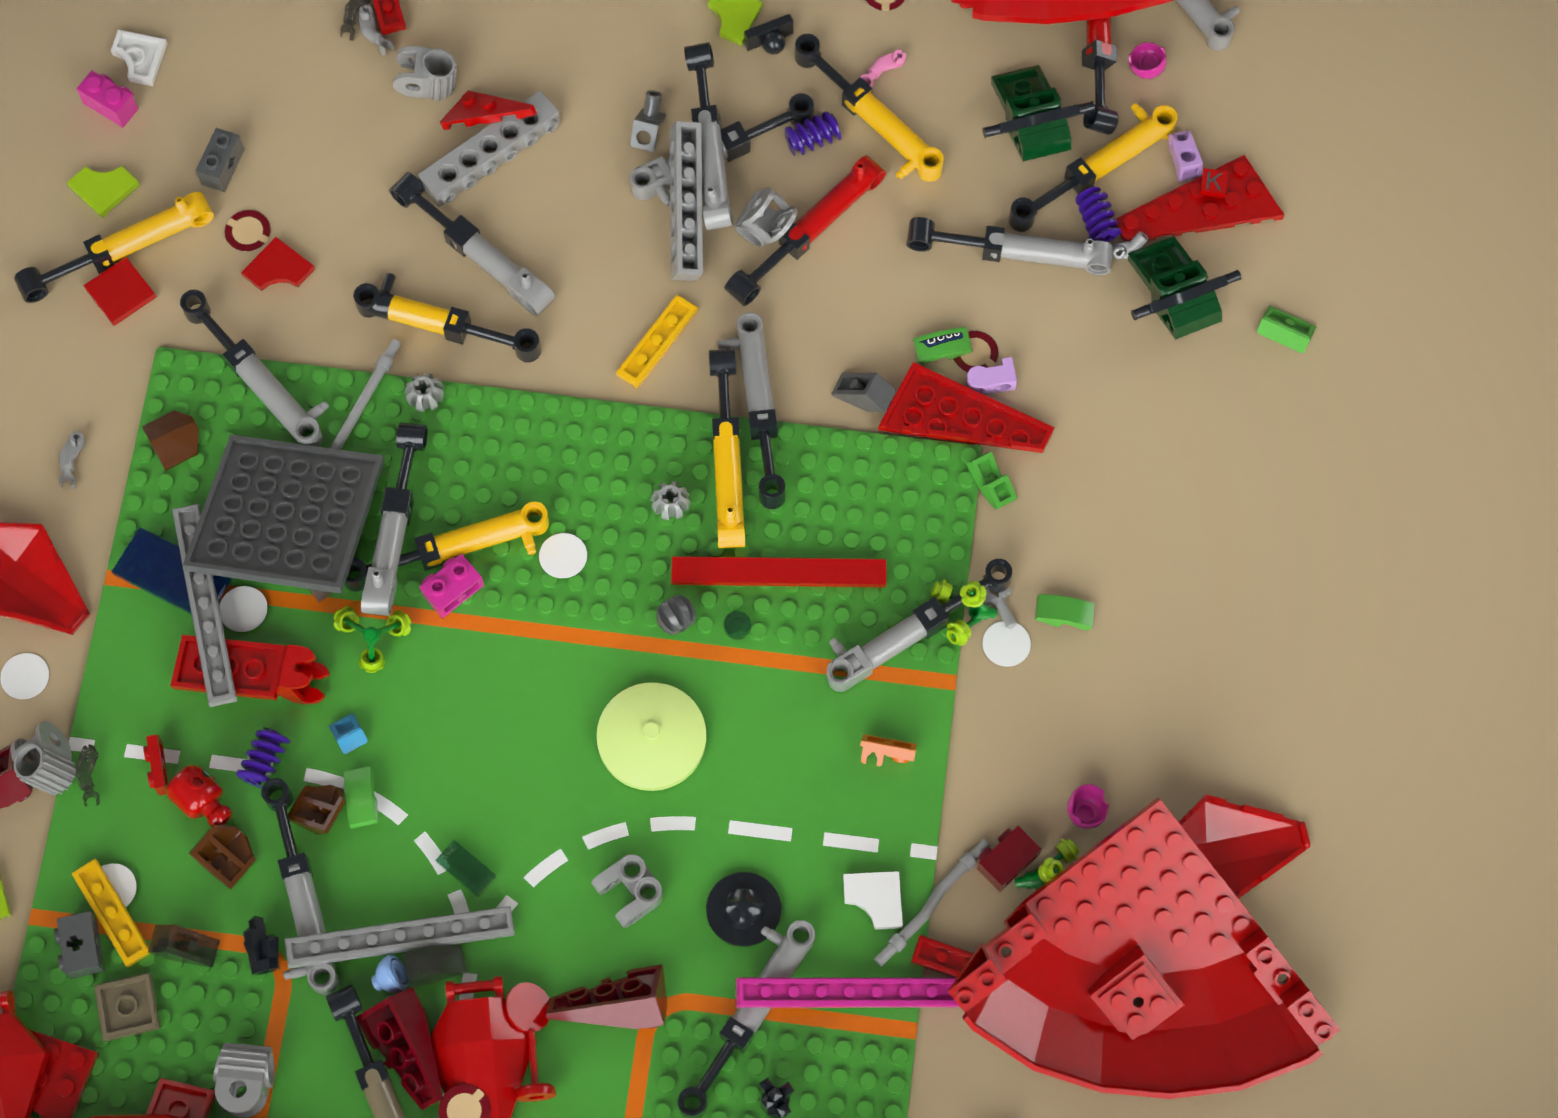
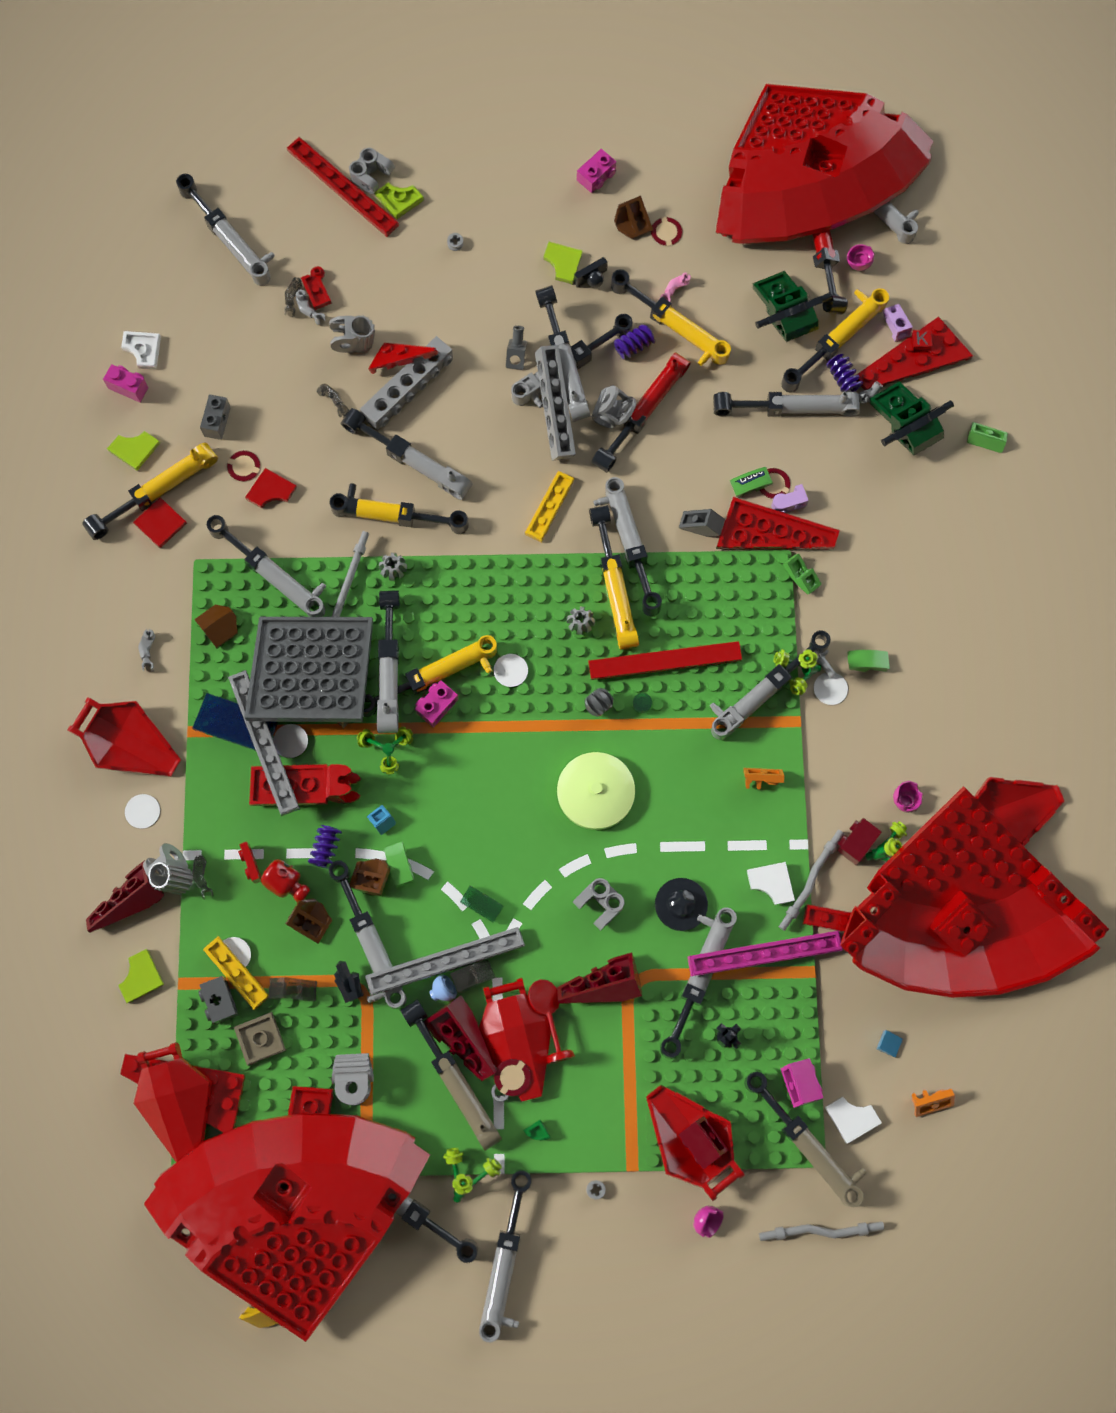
camera: 10 degrees left, 5 degrees up
(377, 143) = (325, 389): none -> clear smoke arm

